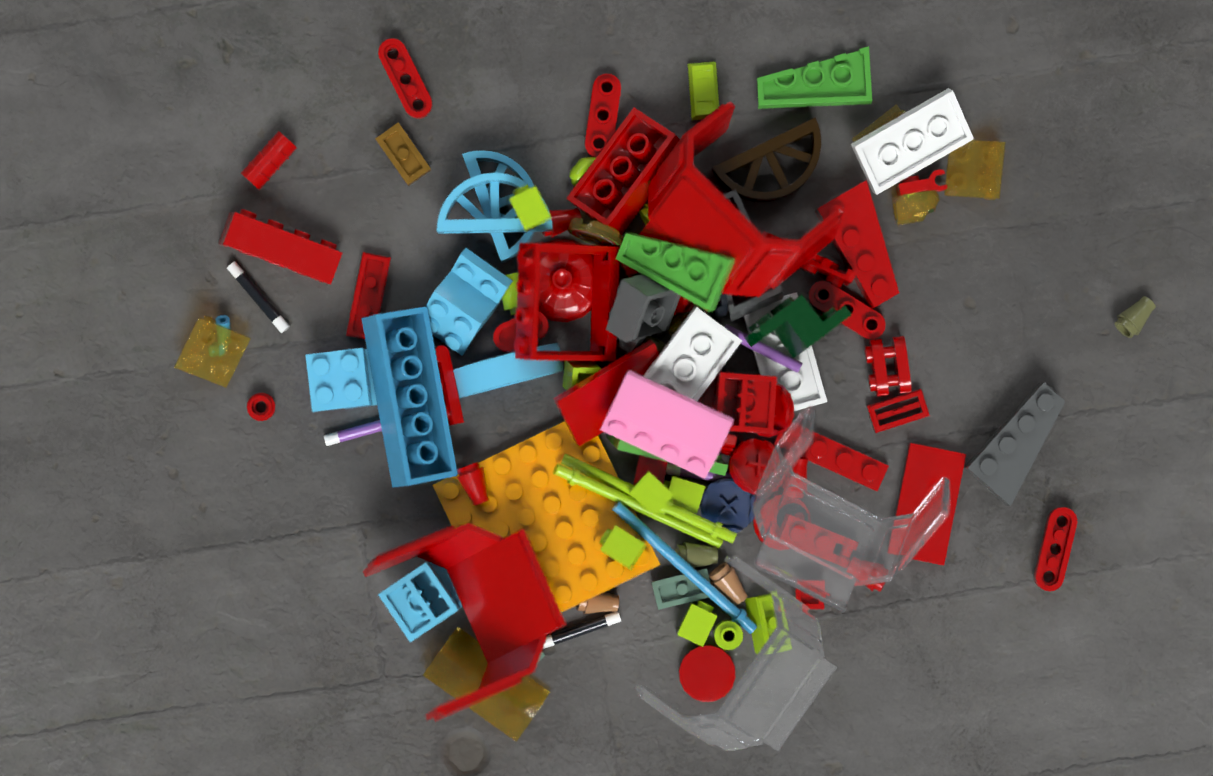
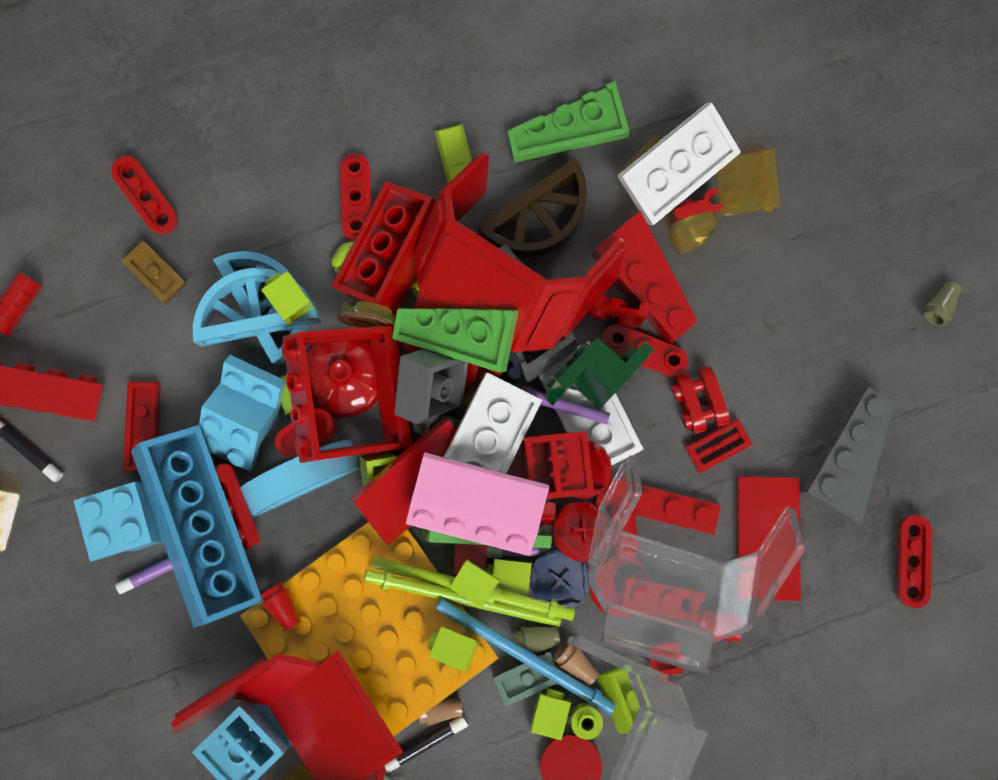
camera: 15 degrees left, 5 degrees down
(252, 406) = (34, 565): red plate -> none
(561, 220) = (328, 312): red cone -> none

